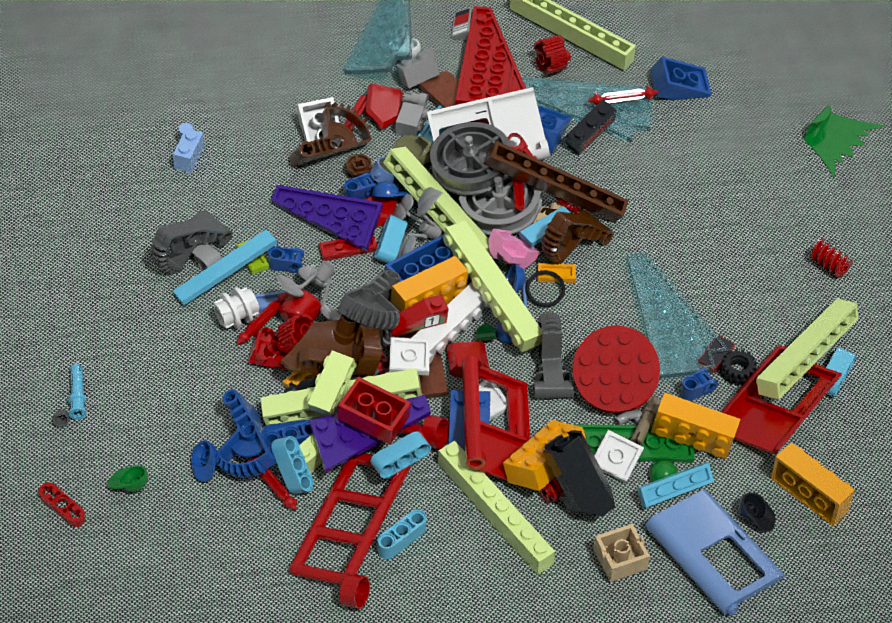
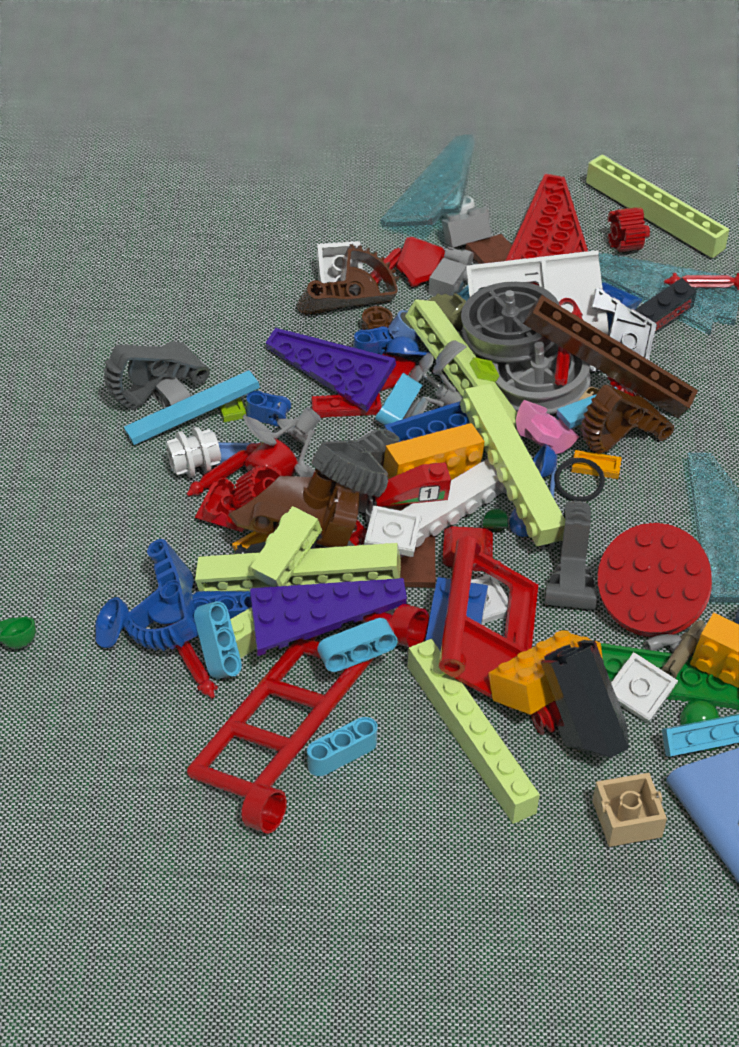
camera: 10 degrees right, 5 degrees down
(188, 148) = (180, 279): light blue hinge -> none
(374, 410) = (331, 584): red brick -> none
(456, 204) = (484, 369): none -> lime tile
(461, 24) = (527, 190): slope -> none
(566, 151) = (627, 325): none -> wing

